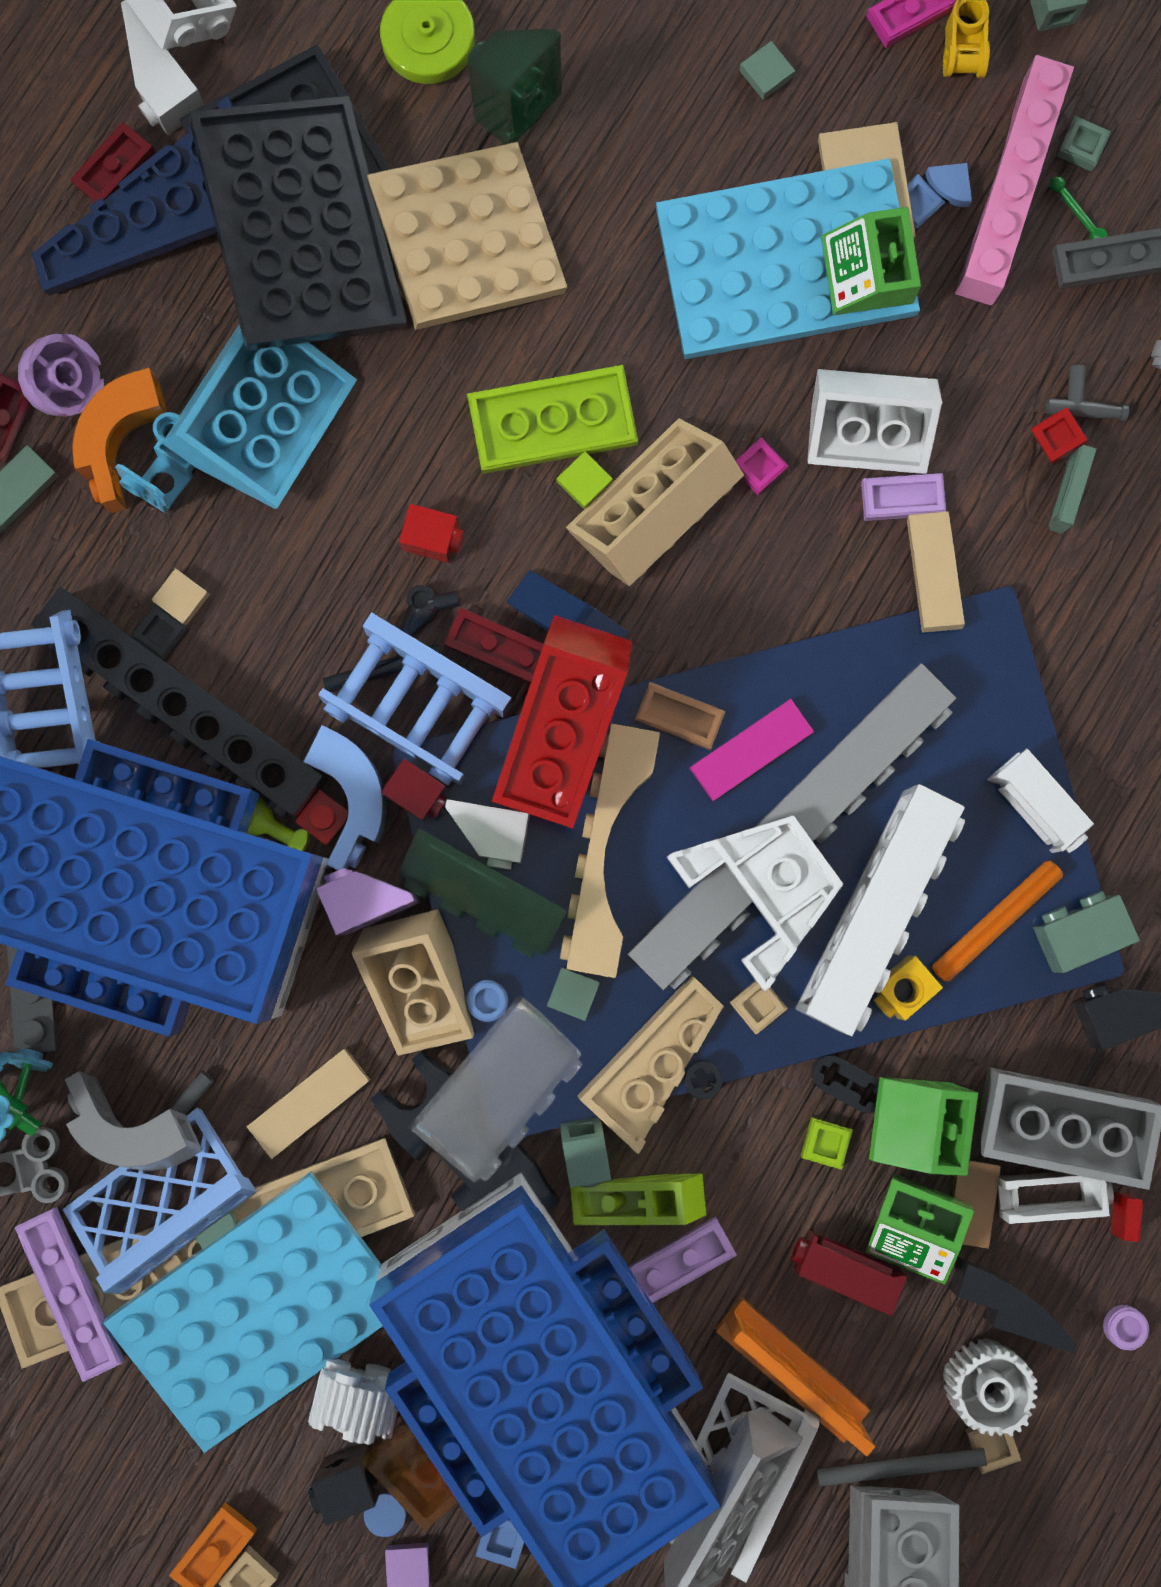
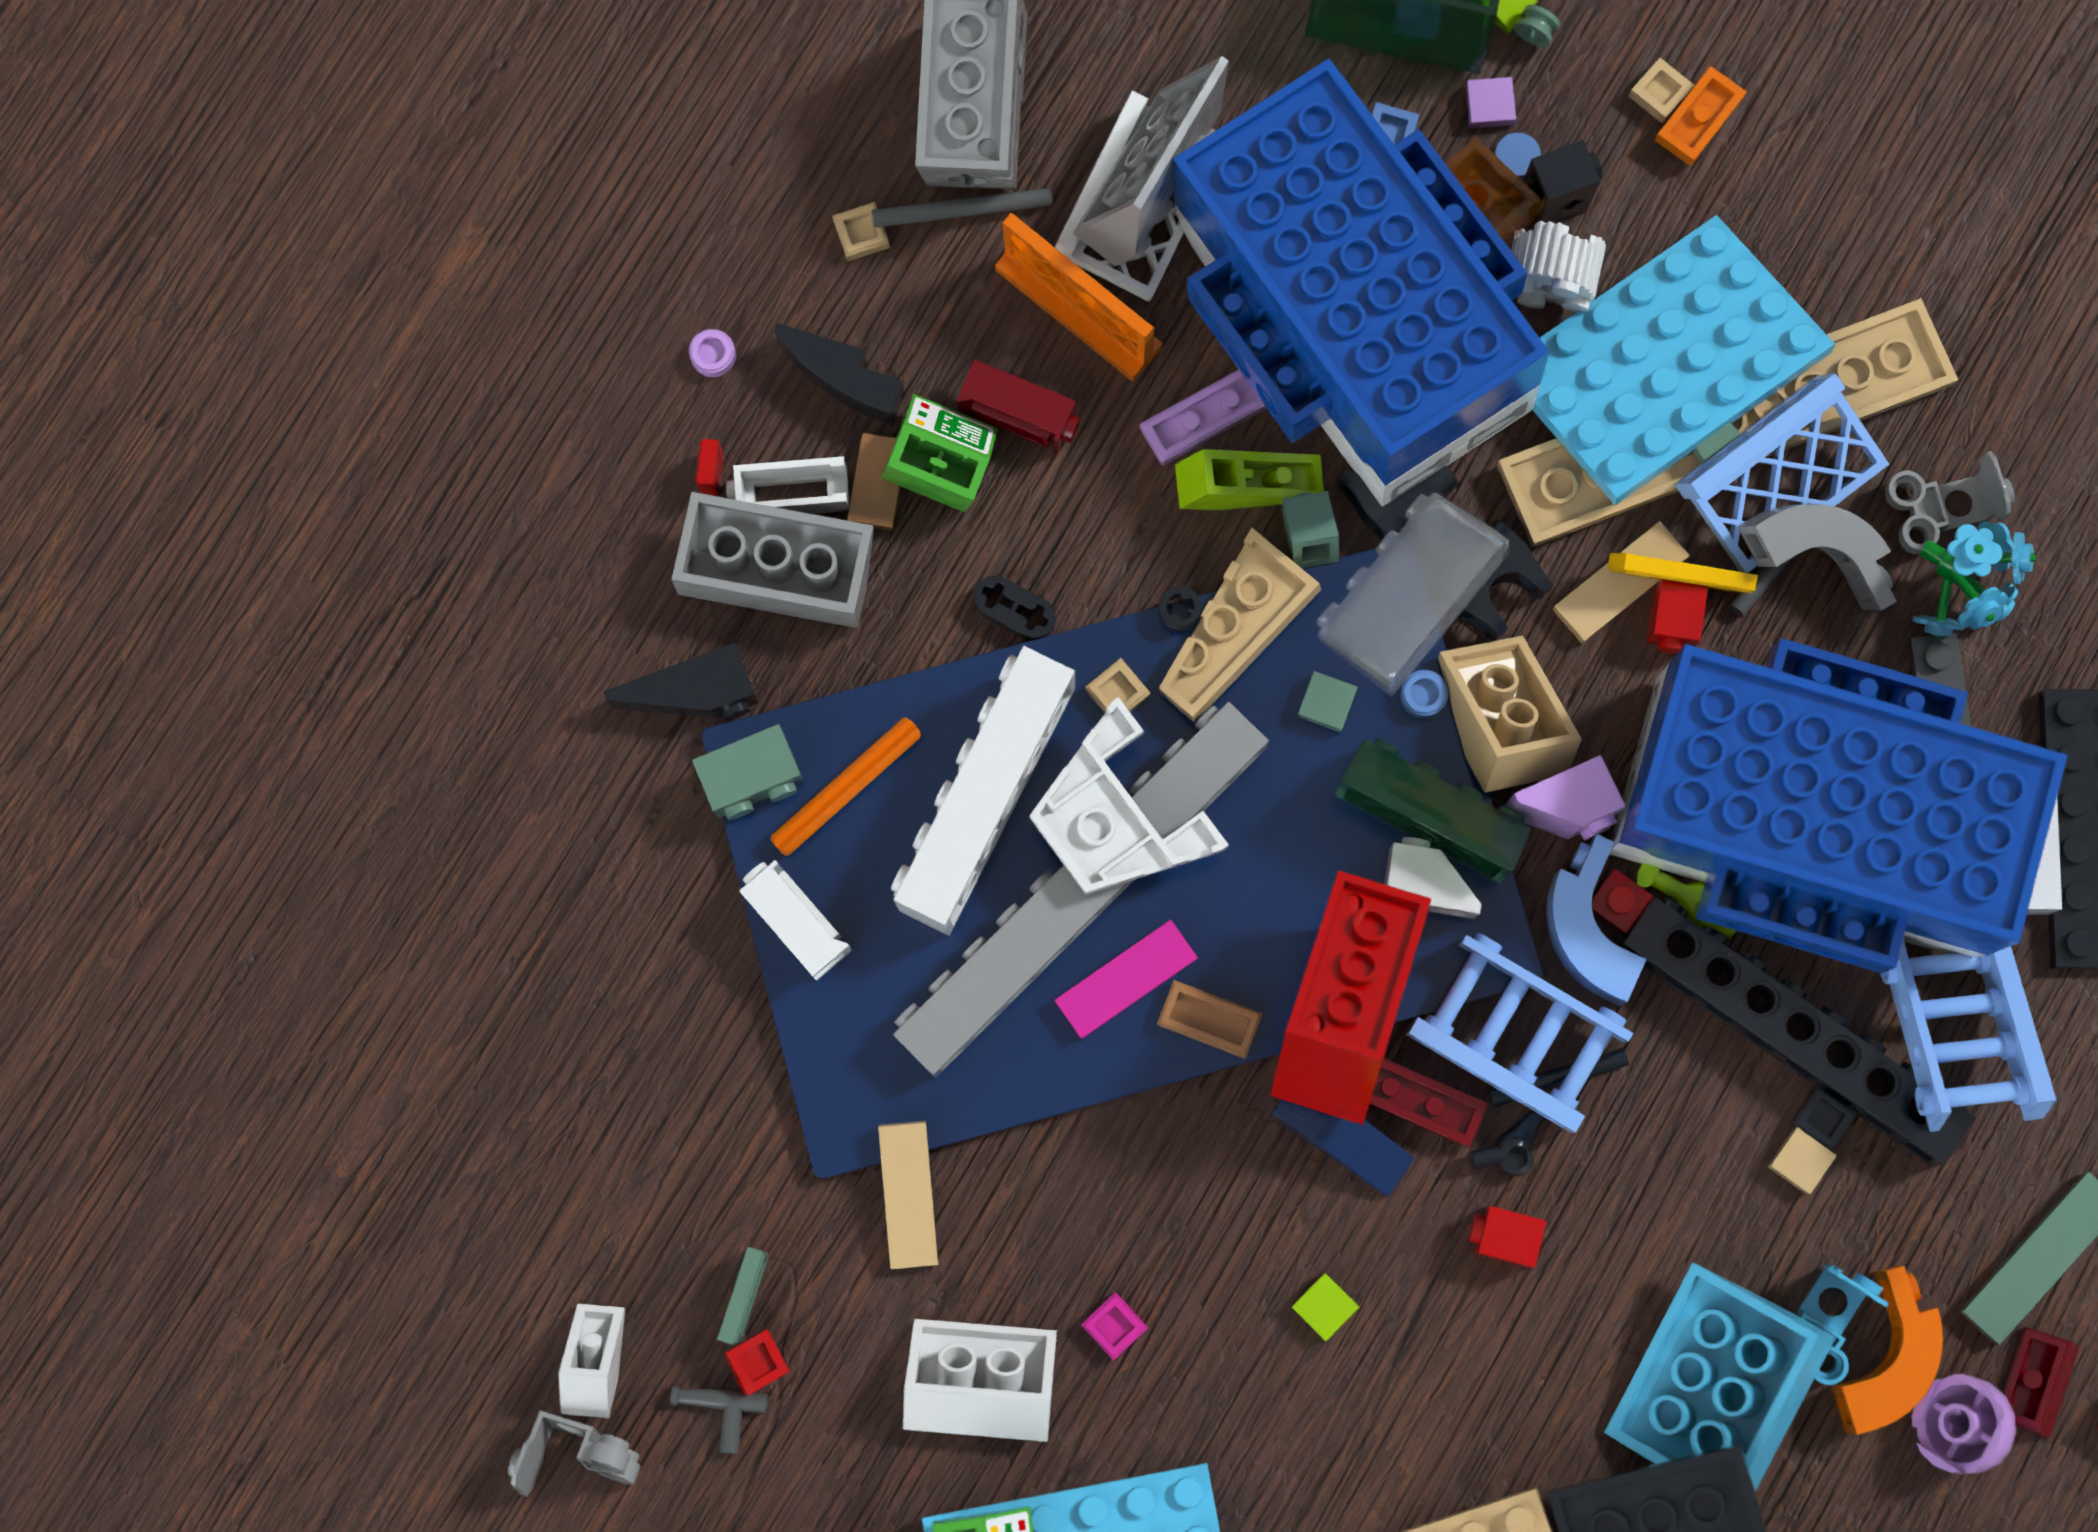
camera: 175 degrees left, 5 degrees down
(69, 1294) = (1875, 375): lavender tile -> none
(254, 1107) = (1682, 572): none -> yellow tile
(260, 1069) = (1676, 615): none -> red brick
(416, 791) = (1515, 925): dark red brick -> none
(552, 419) = (1365, 1383): lime tile -> none
(596, 937) = (1303, 766): tan arch -> none
(656, 500) = (1241, 1278): tan slope -> none
(826, 1143) = (1039, 544): lime tile -> none
(902, 496) = (942, 1289): lavender tile -> none
(923, 986) = (948, 728): yellow brick -> none
(923, 1125) = (935, 560): bright green slope -> none
(973, 1371) = (871, 311): white brick -> none

